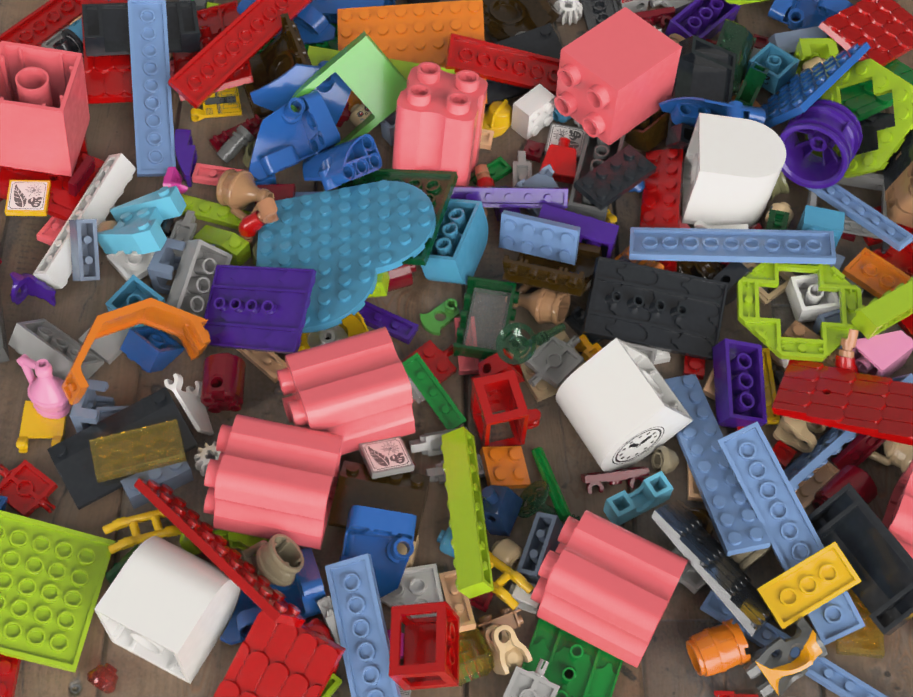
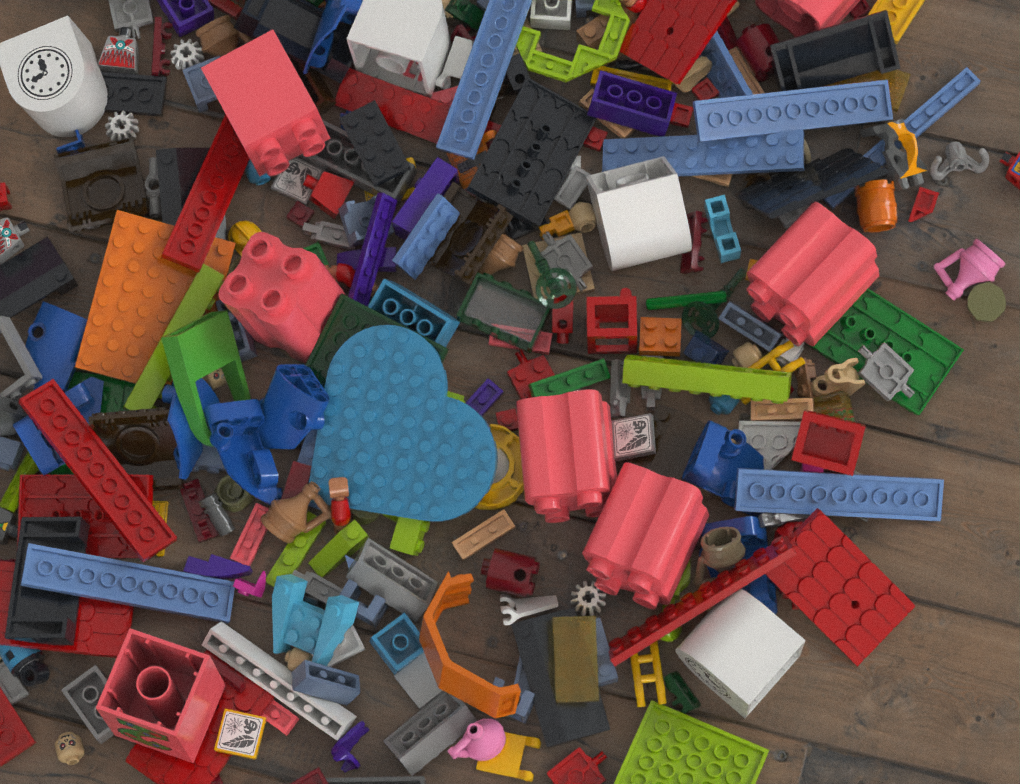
camera: 65 degrees left, 15 degrees up
(103, 678) = (782, 726): clear red cone -> none
(150, 348) = (455, 634): blue slope -> none
(258, 307) = (463, 506): dark purple piece -> none
(448, 308) = (481, 368): bright green piece -> none
(533, 112) = (261, 200): white brick -> none
(664, 460) = (690, 194): dark tan cone -> none
(808, 585) = (845, 112): yellow plate -> none

